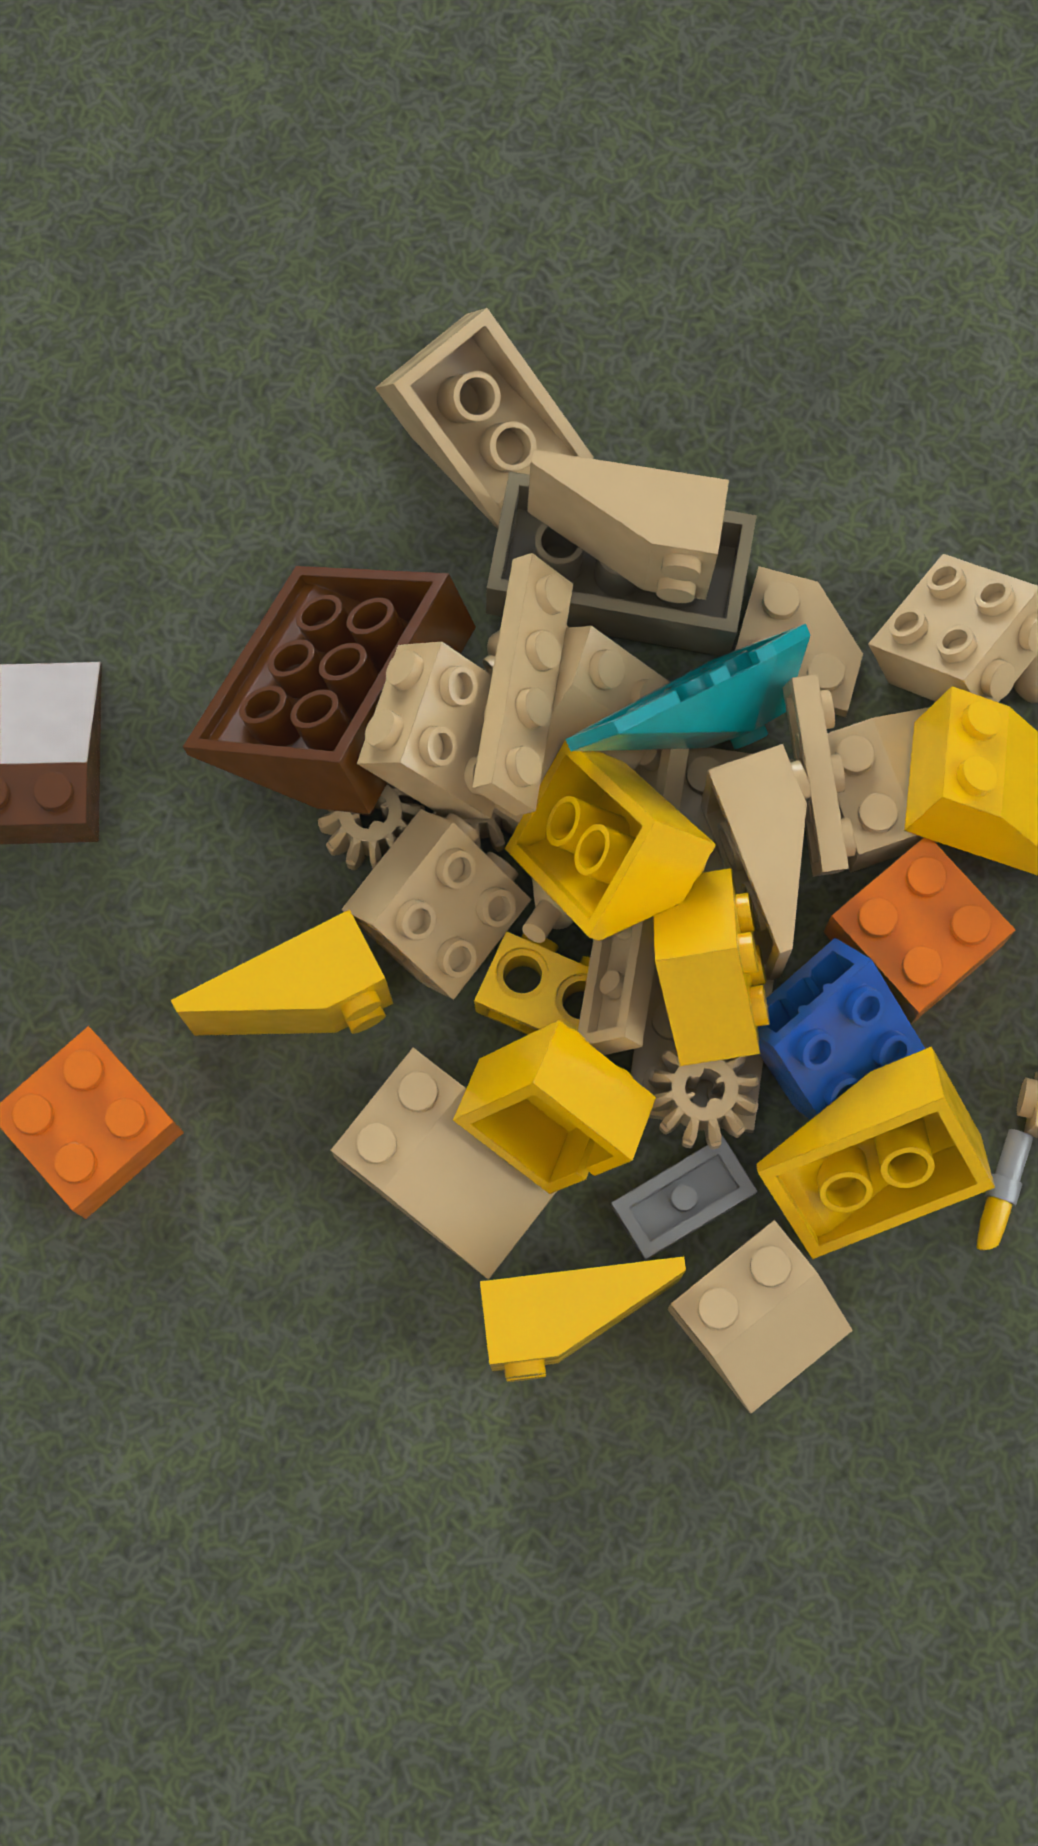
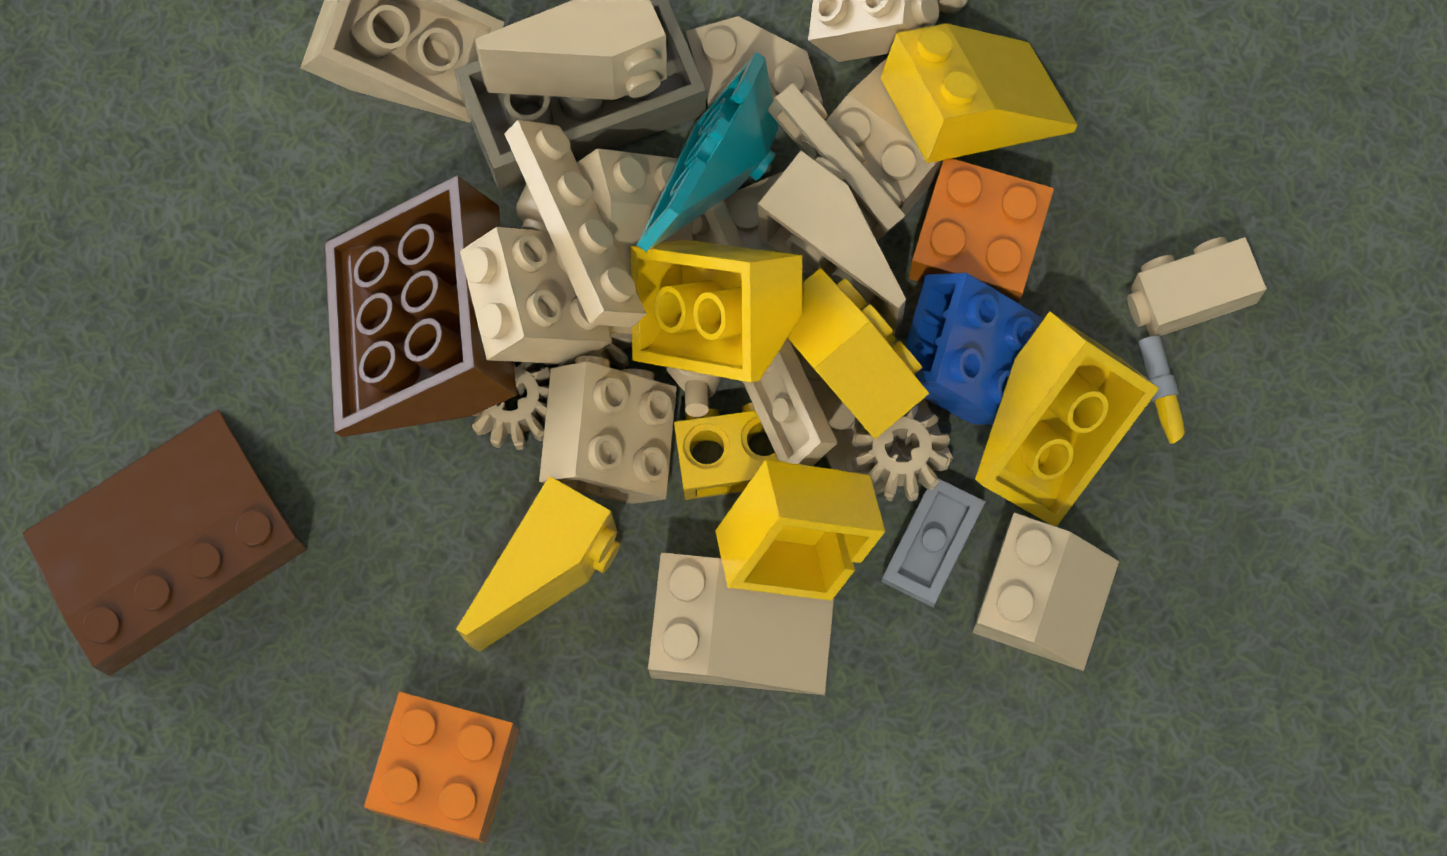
camera: 30 degrees left, 0 degrees up
(556, 1313) = (891, 689): yellow slope -> none

